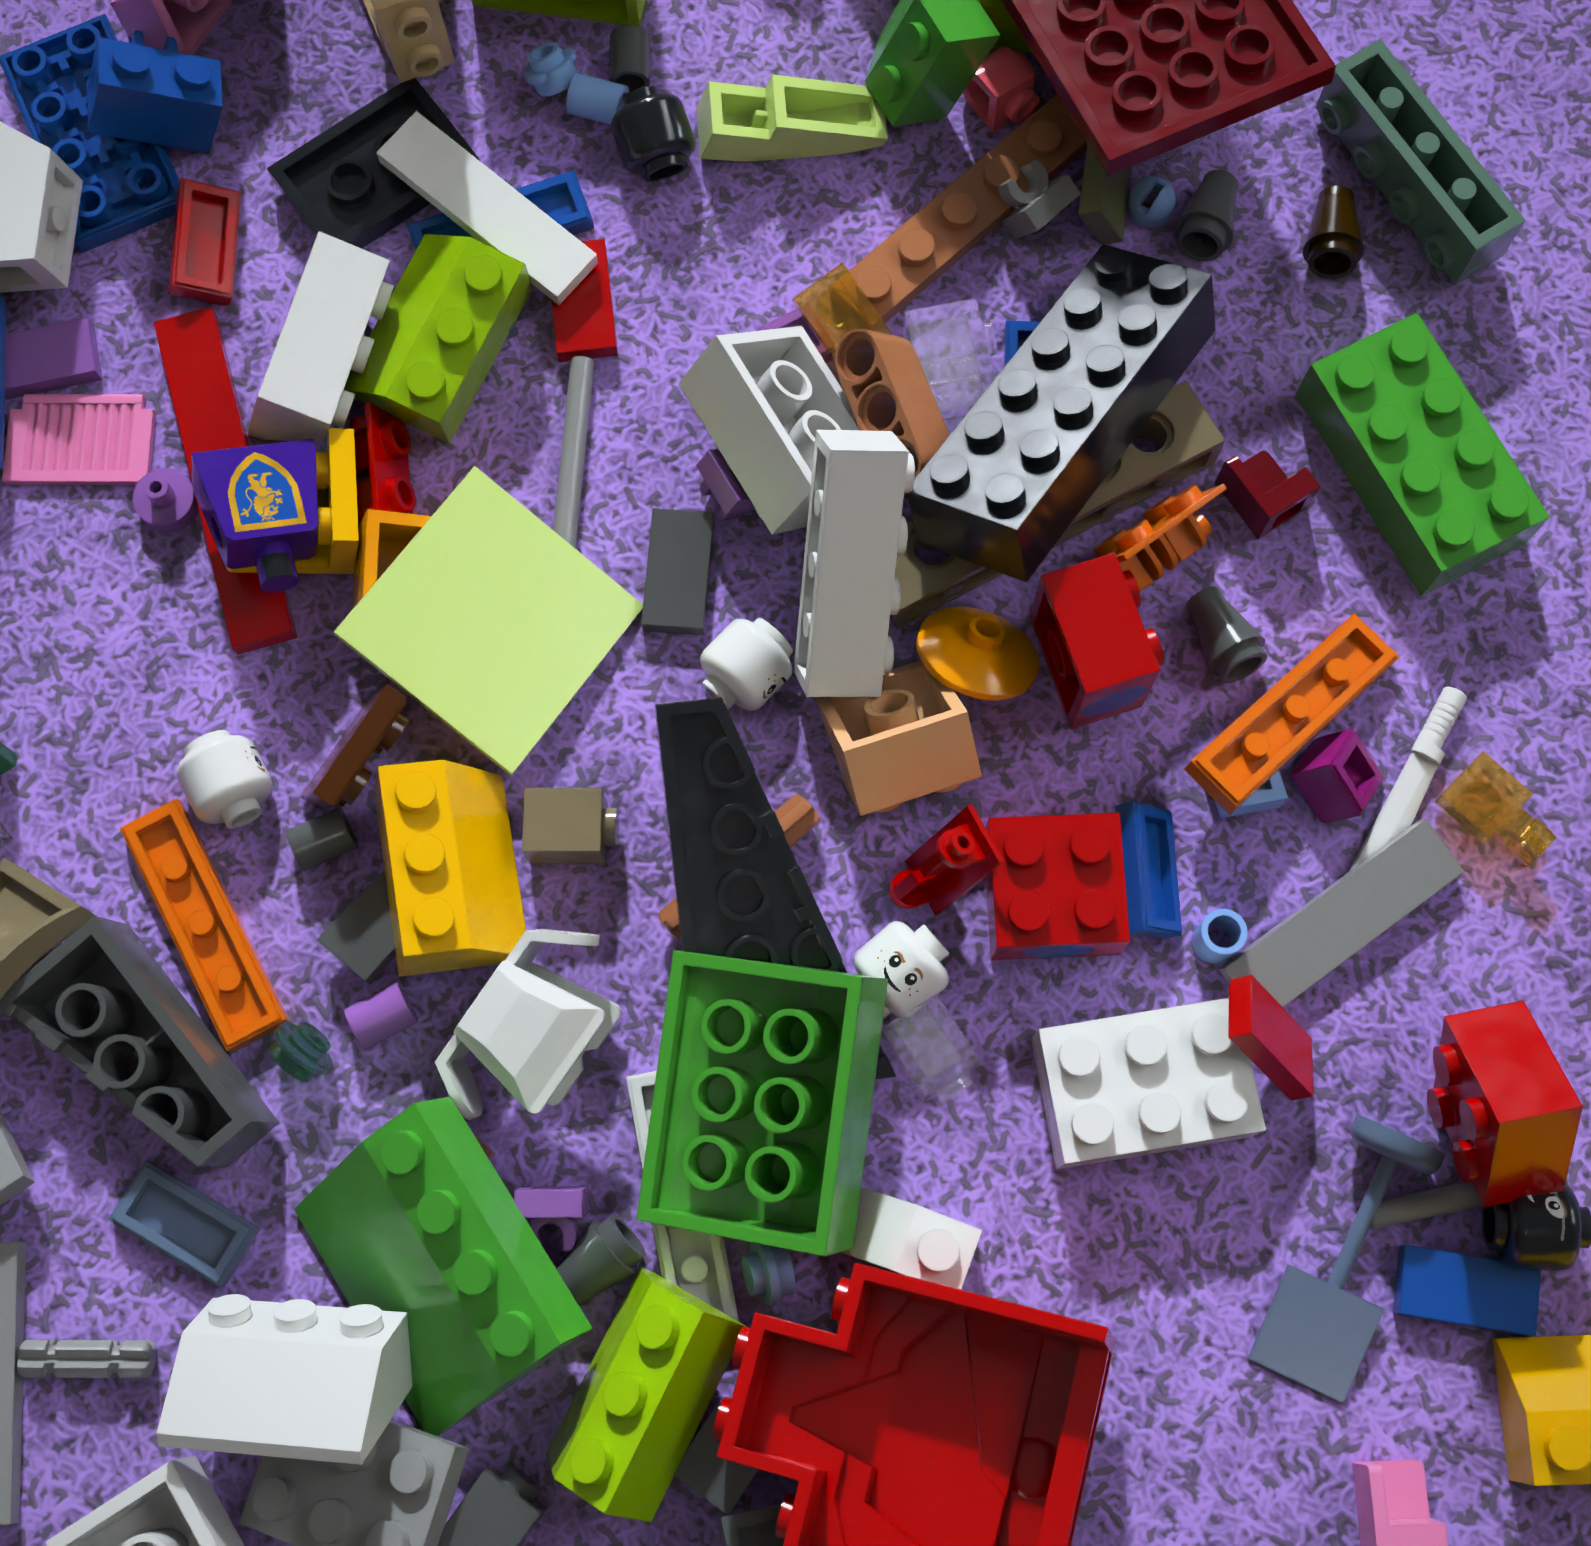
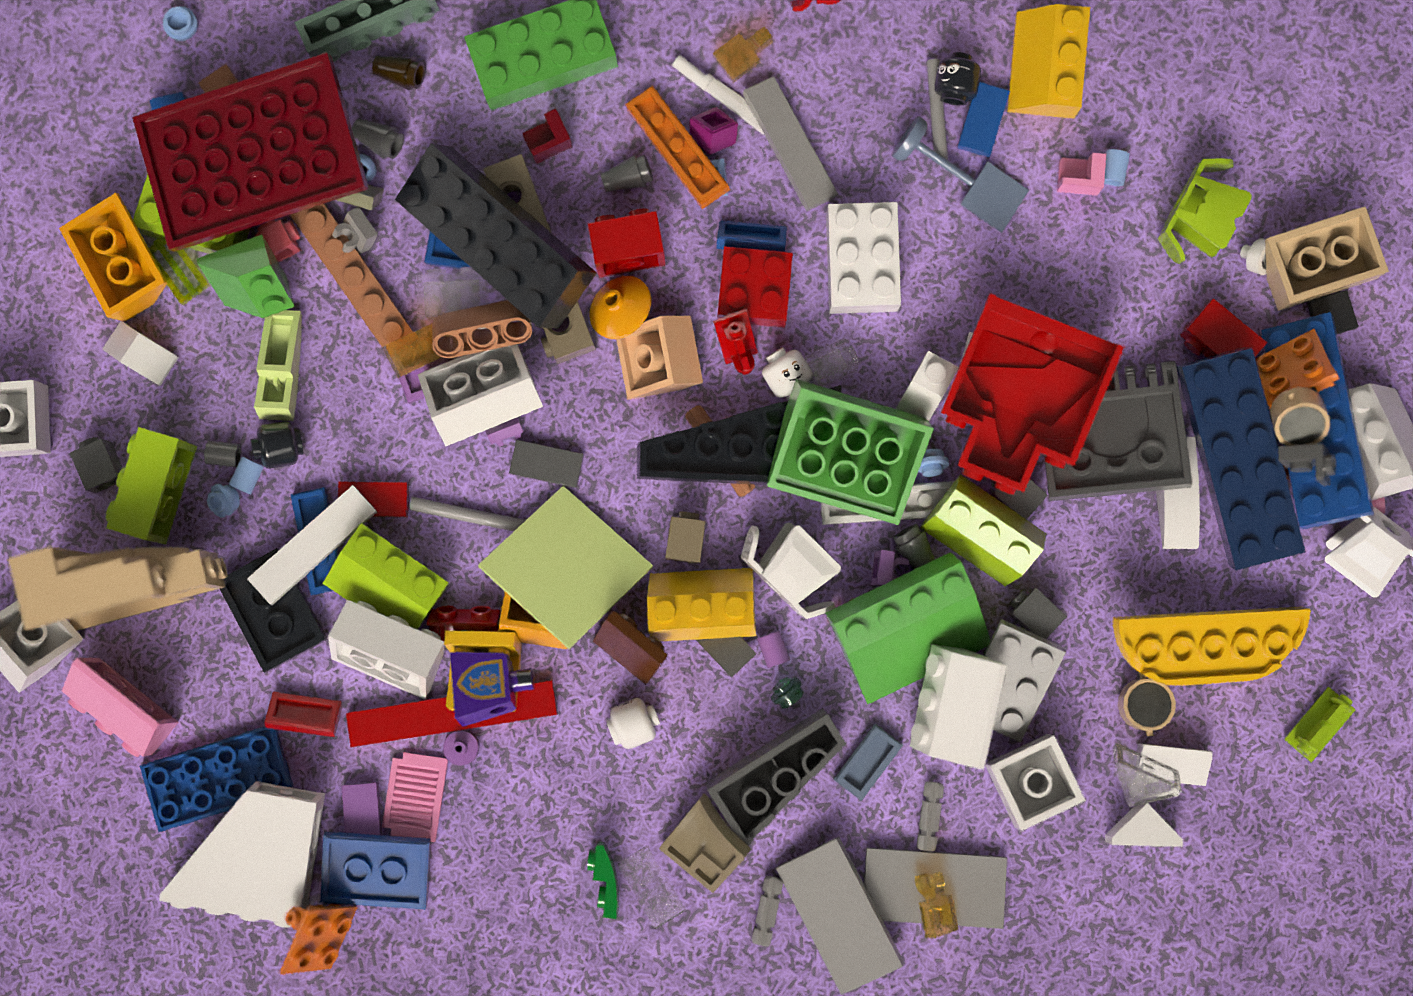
camera: 80 degrees left, 10 degrees up
(154, 94) = (209, 734): blue brick -> none
(204, 926) = (710, 741): orange tile -> none
(321, 839) = (673, 673): dark grey hinge -> none
(746, 664) = (608, 433): white head -> none
(851, 562) = (570, 364): white brick -> none
(1164, 536) = (565, 194): orange hinge -> none
(1231, 923) = (791, 198): light blue hinge -> none
(1270, 1037) = (850, 191): red tile -> none
(1503, 1103) = (900, 83): red brick -> none

